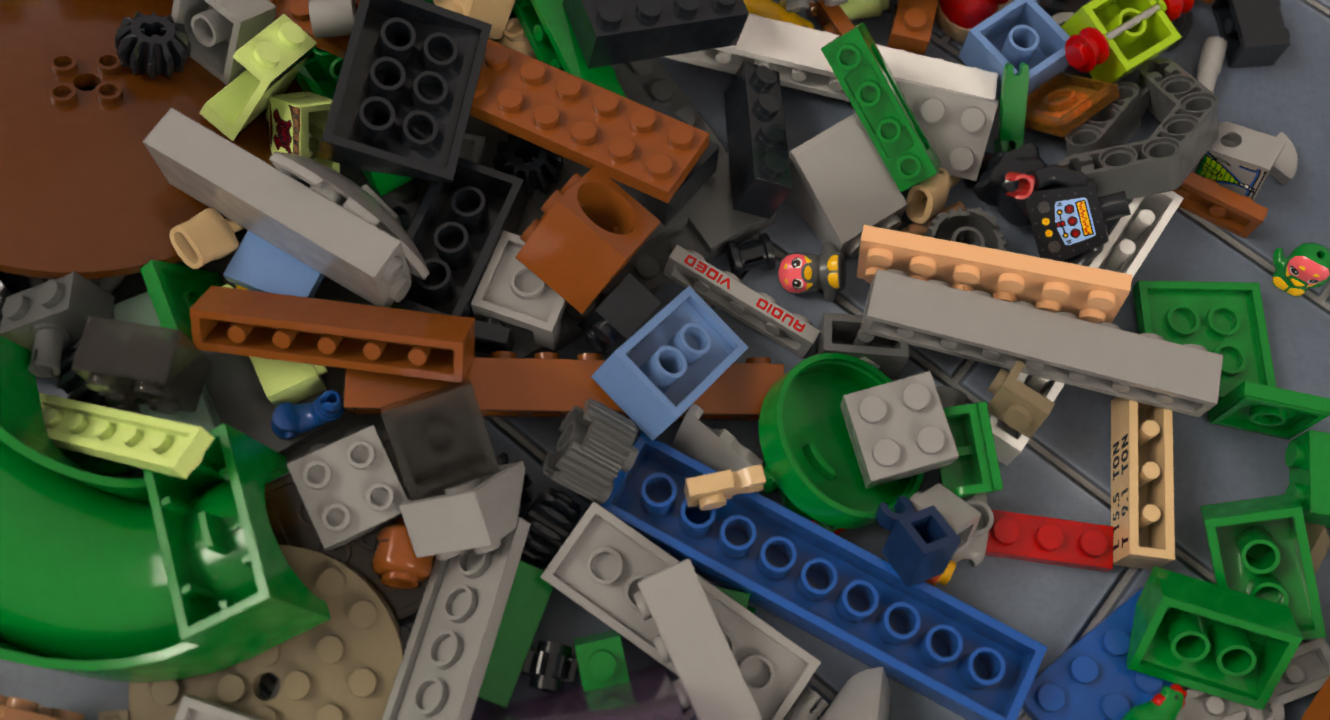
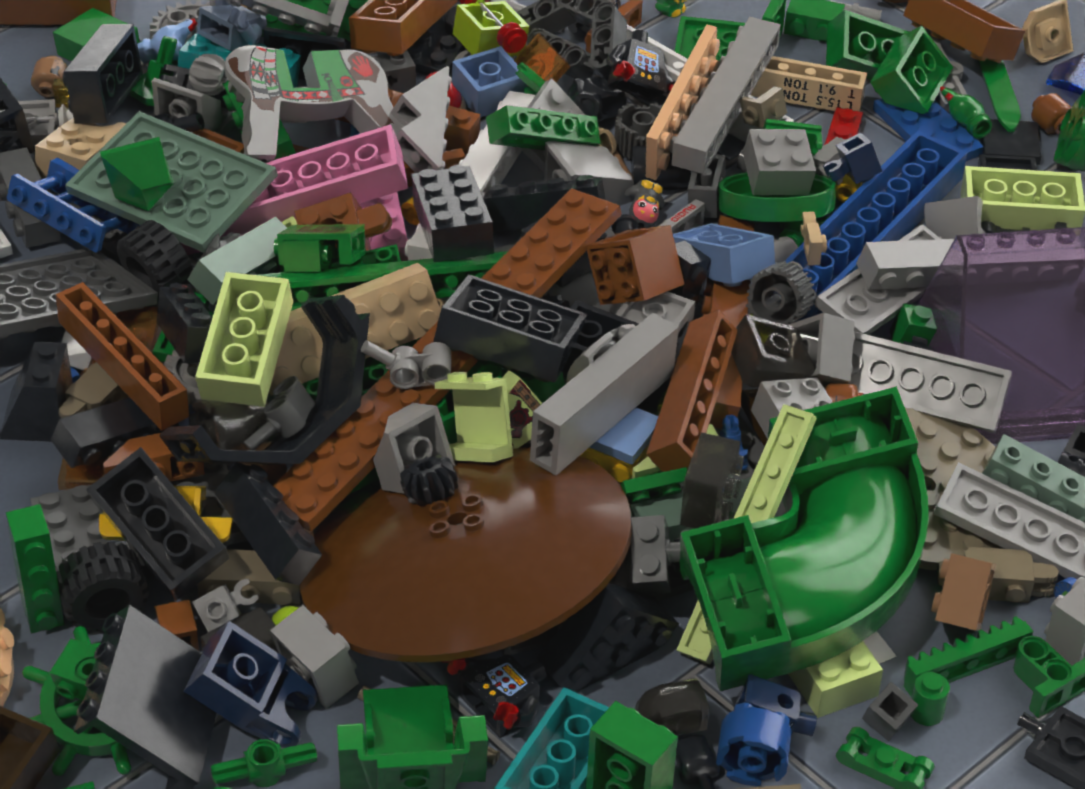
camera: 80 degrees left, 25 degrees down
(205, 238) = (607, 456): tan piece -> none

